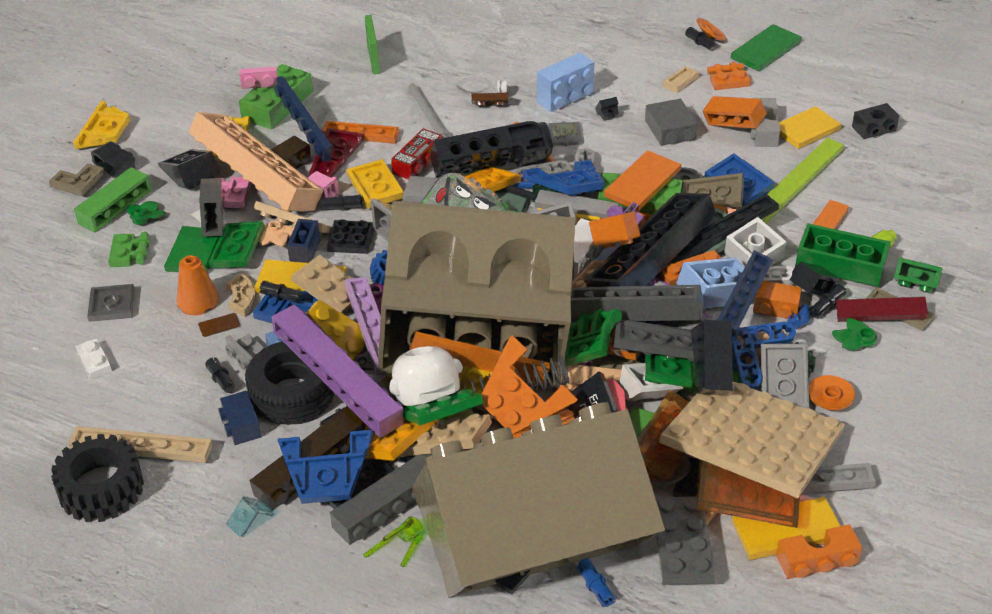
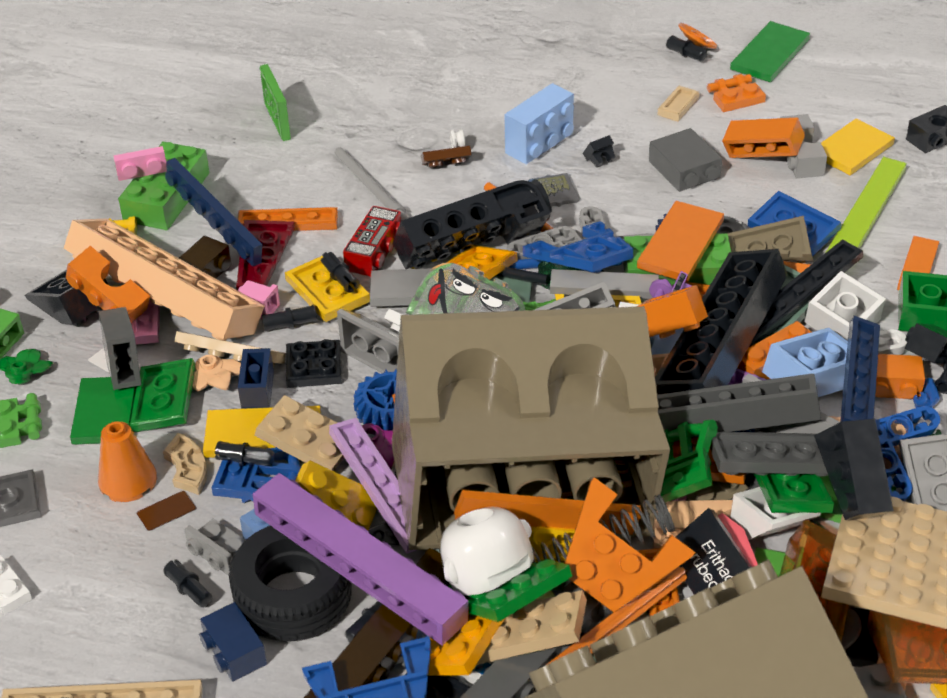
camera: 10 degrees left, 0 degrees up
(200, 151) = (87, 274): none -> orange arch
(384, 173) = (339, 271): none -> black axle

